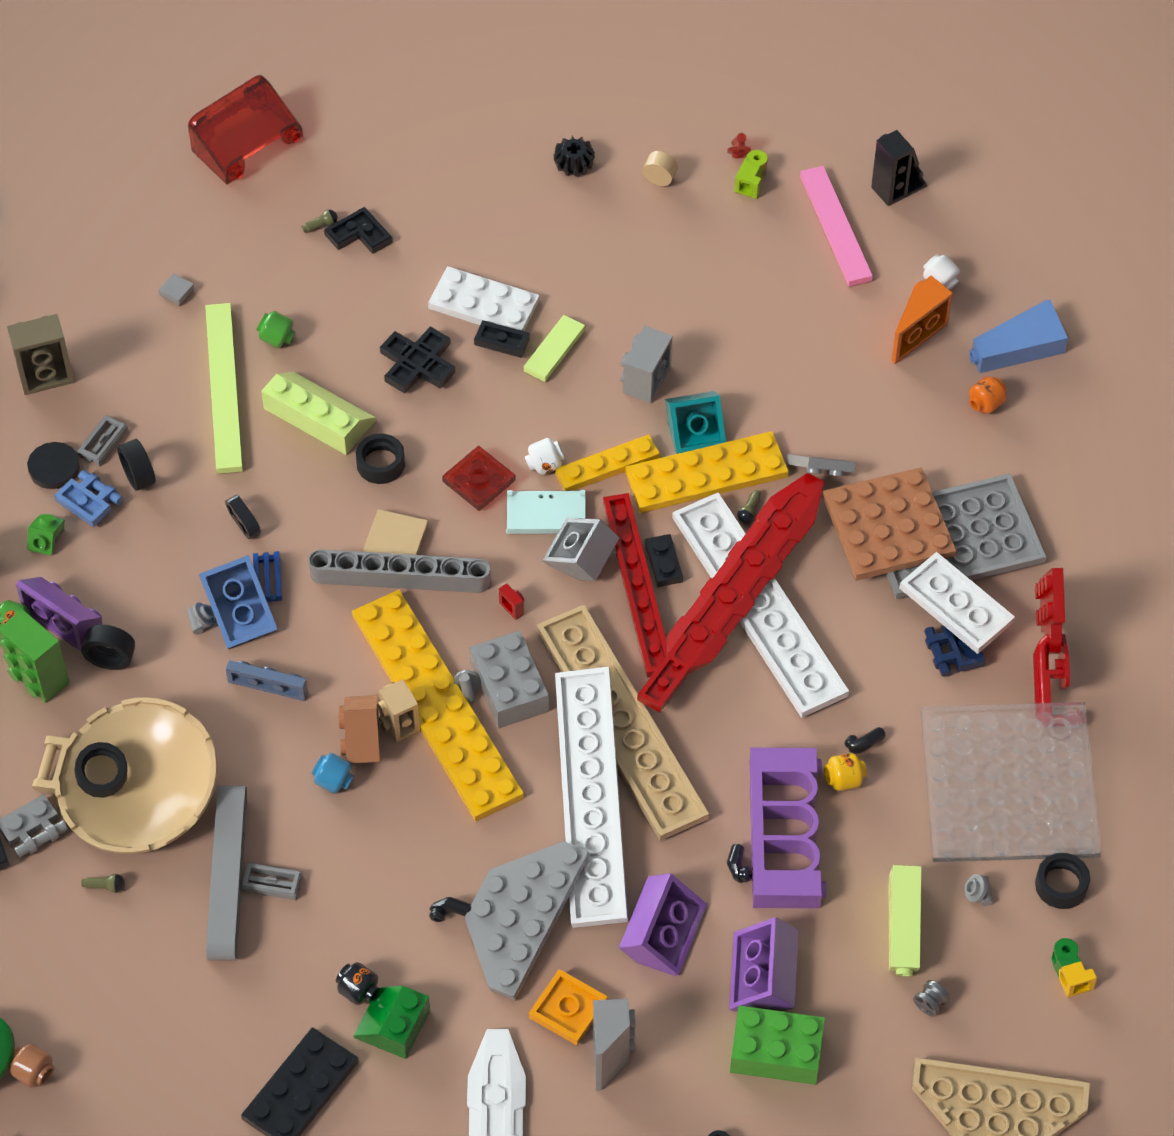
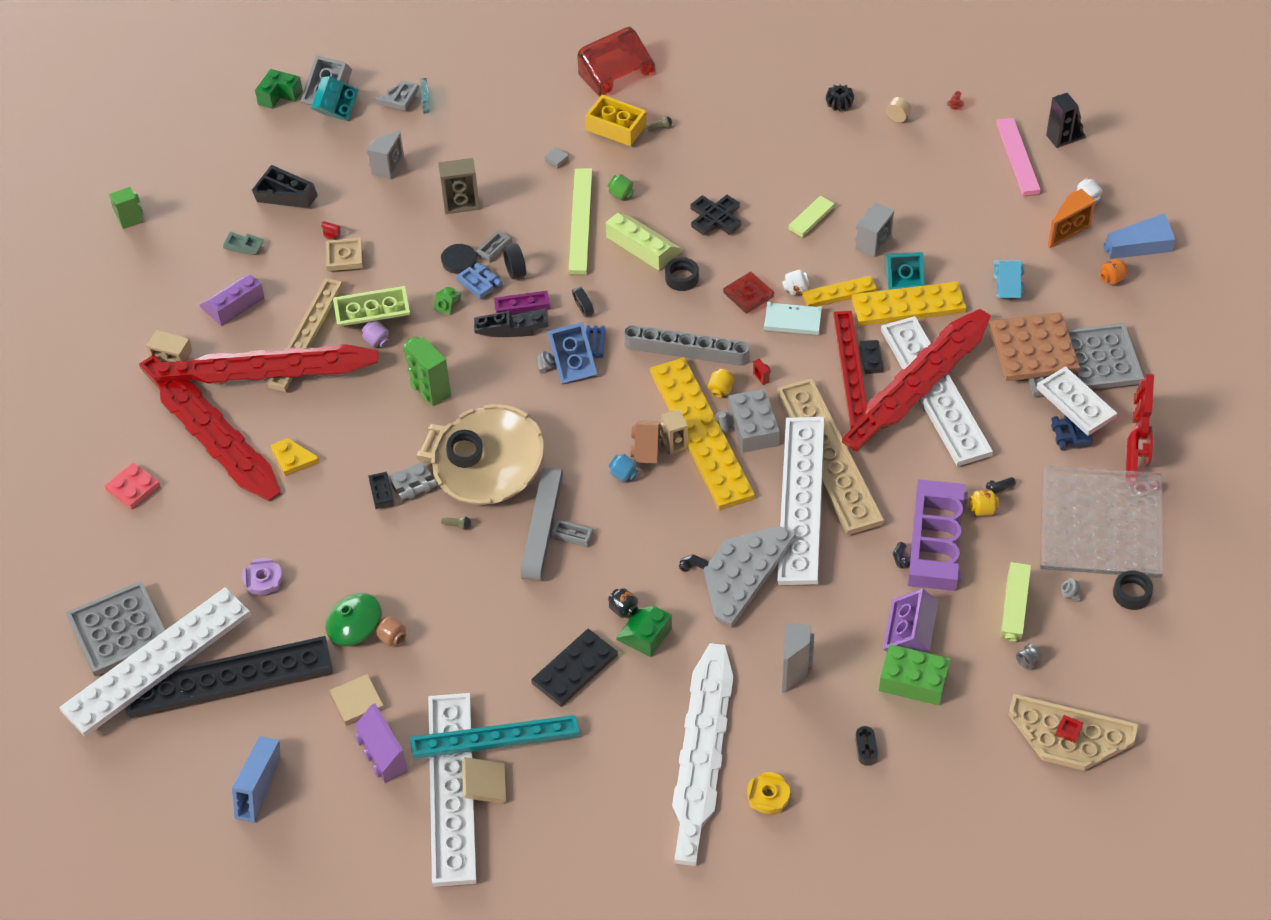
camera: 10 degrees right, 5 degrees down
(57, 610) = (457, 354): medium lavender slope -> none
(113, 658) = (476, 380): black tyre -> none
(145, 565) = (508, 325): none -> black slope
(155, 527) = (522, 302): none -> magenta plate
(256, 223) = (616, 120): none -> yellow brick
(267, 680) = (585, 405): sand blue plate -> none
(359, 226) = (685, 129): black tile -> none
(395, 534) = (687, 321): tan tile -> none
(456, 625) = (721, 383): none -> yellow head
(481, 299) = (766, 183): white plate -> none
(501, 338) = (775, 206): black plate -> none
(566, 1007) = (766, 635): light orange plate -> none
(581, 548) = (815, 342): light grey slope -> none
(663, 924) = (842, 588): medium lavender slope -> none
(747, 513) = (933, 332): olive piece -> none
(750, 174) = (961, 119): lime leg -> none
(816, 464) = (986, 303): light grey wing -> none
(843, 420) = (1008, 278): none -> medium azure brick
(998, 1103) = (1069, 728): none -> red plate
(1070, 970) = (1131, 648): leg -> none

